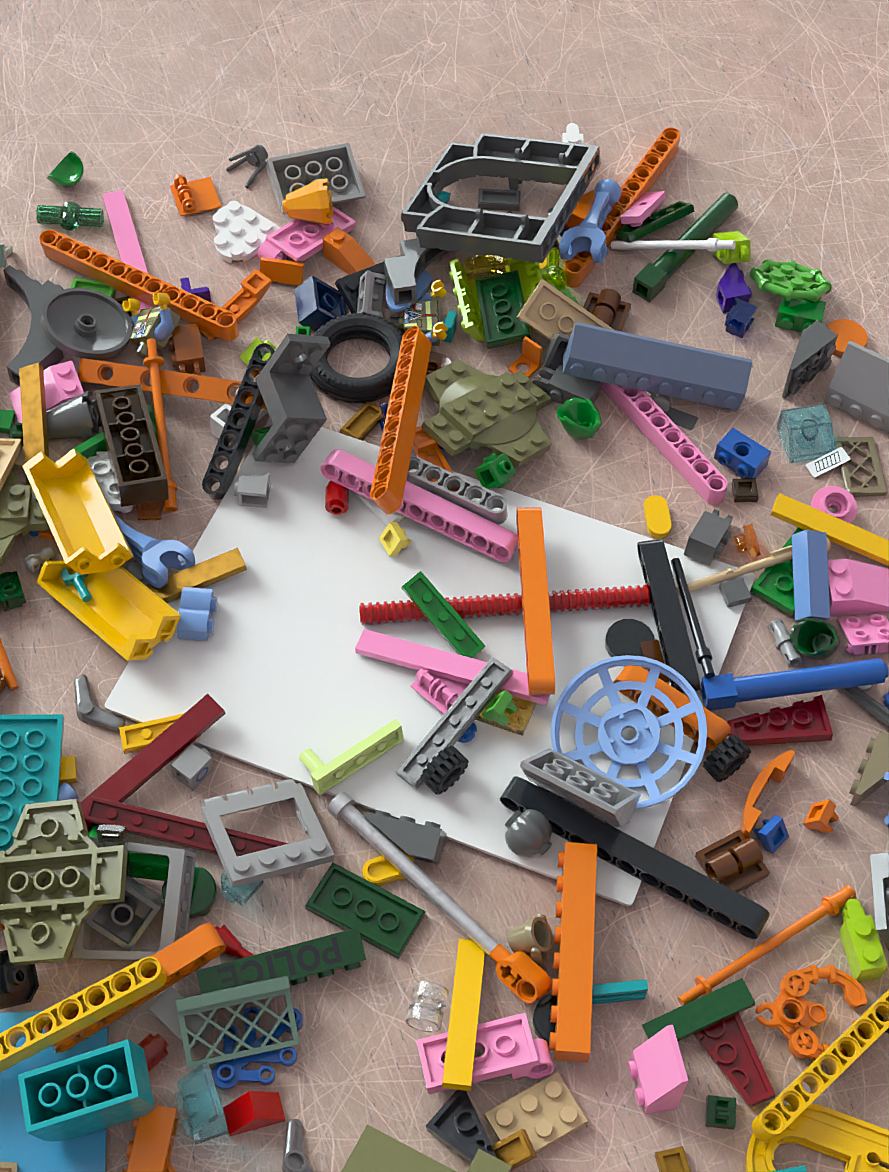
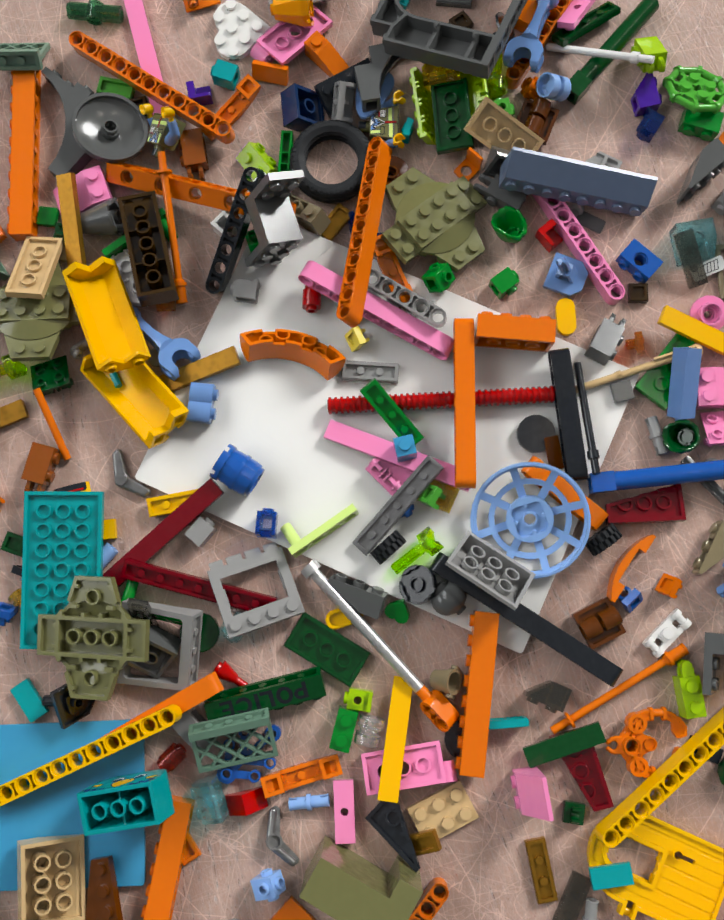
camera: 10 degrees right, 25 degrees up
(227, 272) = (225, 74): none -> teal brick
(243, 685) = (237, 471): none -> blue piece
(281, 751) = (266, 523): none -> clear blue window
(313, 550) = (294, 347): none -> orange brick
(333, 1073) = (300, 775): none -> orange slope
(338, 412) = (310, 216): none -> dark tan slope
(344, 1108) = (309, 802): none -> light blue pin
(391, 1006) = (343, 729): none -> green brick
(395, 576) = (368, 371): none -> light grey tile
(395, 1103) = (345, 822): none -> bright pink tile
(405, 976) = (364, 694): none -> lime brick
(460, 856) = (398, 610): none -> green tile
(461, 650) = (405, 448): none -> dark azure brick
(486, 816) = (418, 584): none -> tile
(495, 767) = (426, 544): none -> clear neon green piece
(577, 480) = (504, 283): none -> green brick
(592, 524) = (514, 332): none -> orange brick
(595, 282) = (529, 88): none -> orange gear
(621, 277) = (553, 86): none -> light blue wheel
(626, 431) = (548, 236): none -> red panel
(653, 470) = (565, 275): none -> medium blue piece
(672, 954) = (549, 693): none -> clear smoke slope
(803, 447) = (690, 258): none -> clear smoke tile
(824, 875) = (666, 632): none -> white plate

